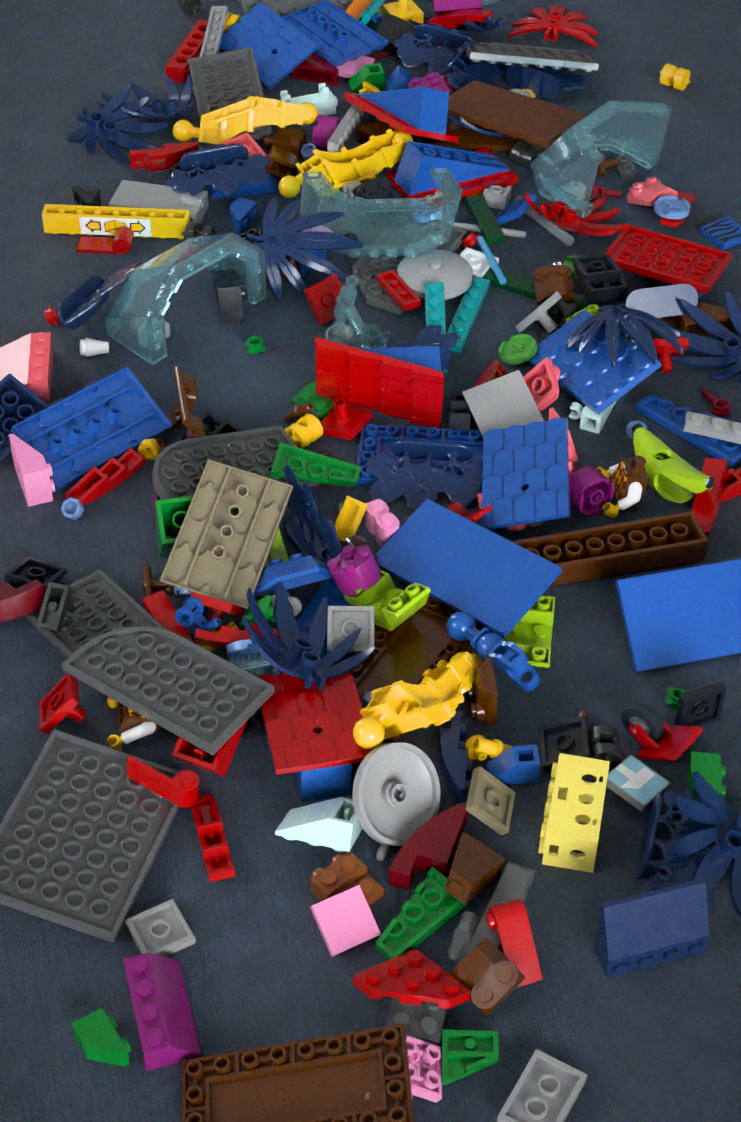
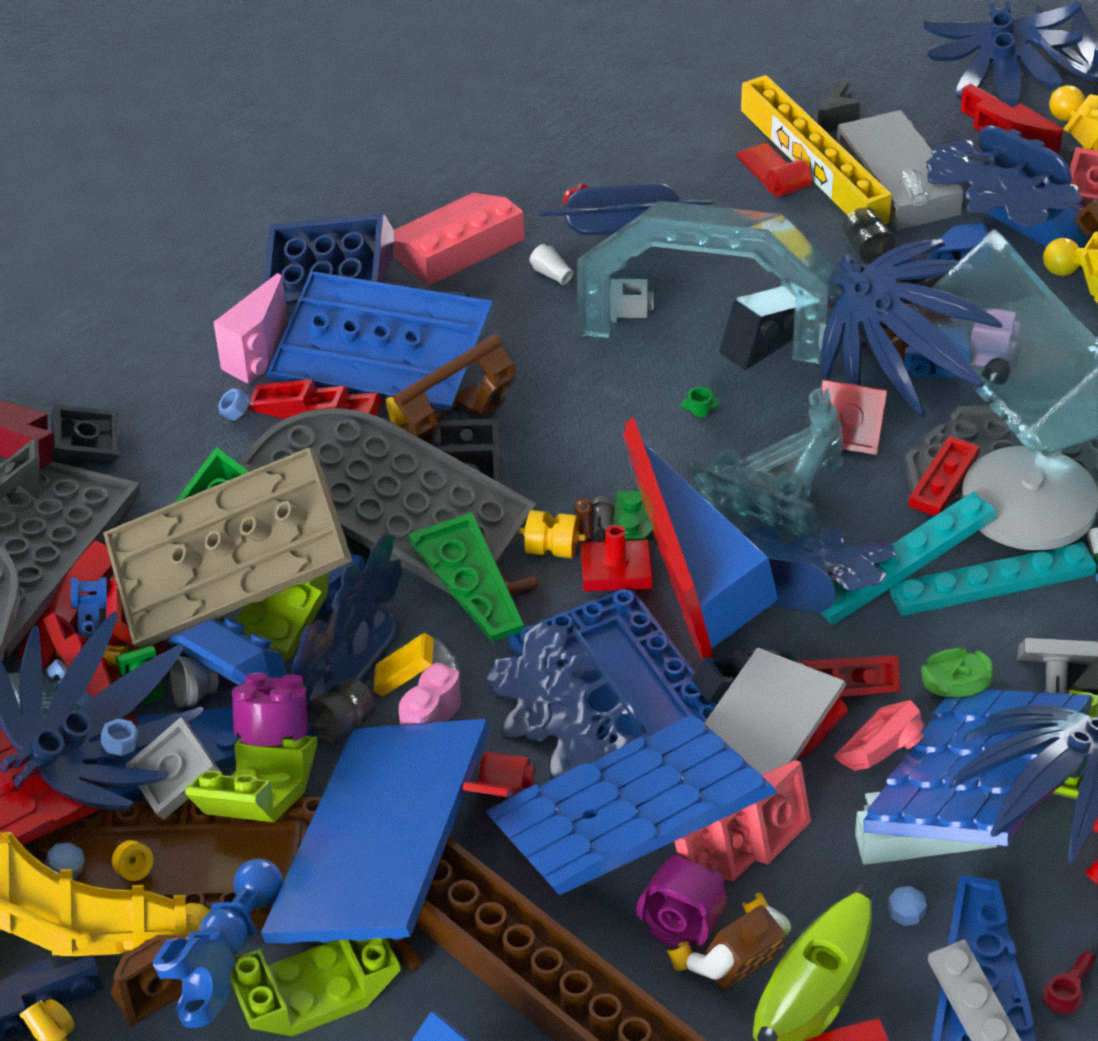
camera: 60 degrees right, 0 degrees up
(319, 635) = (119, 737): none -> medium blue tile
(395, 673) = (132, 860): none -> yellow tile

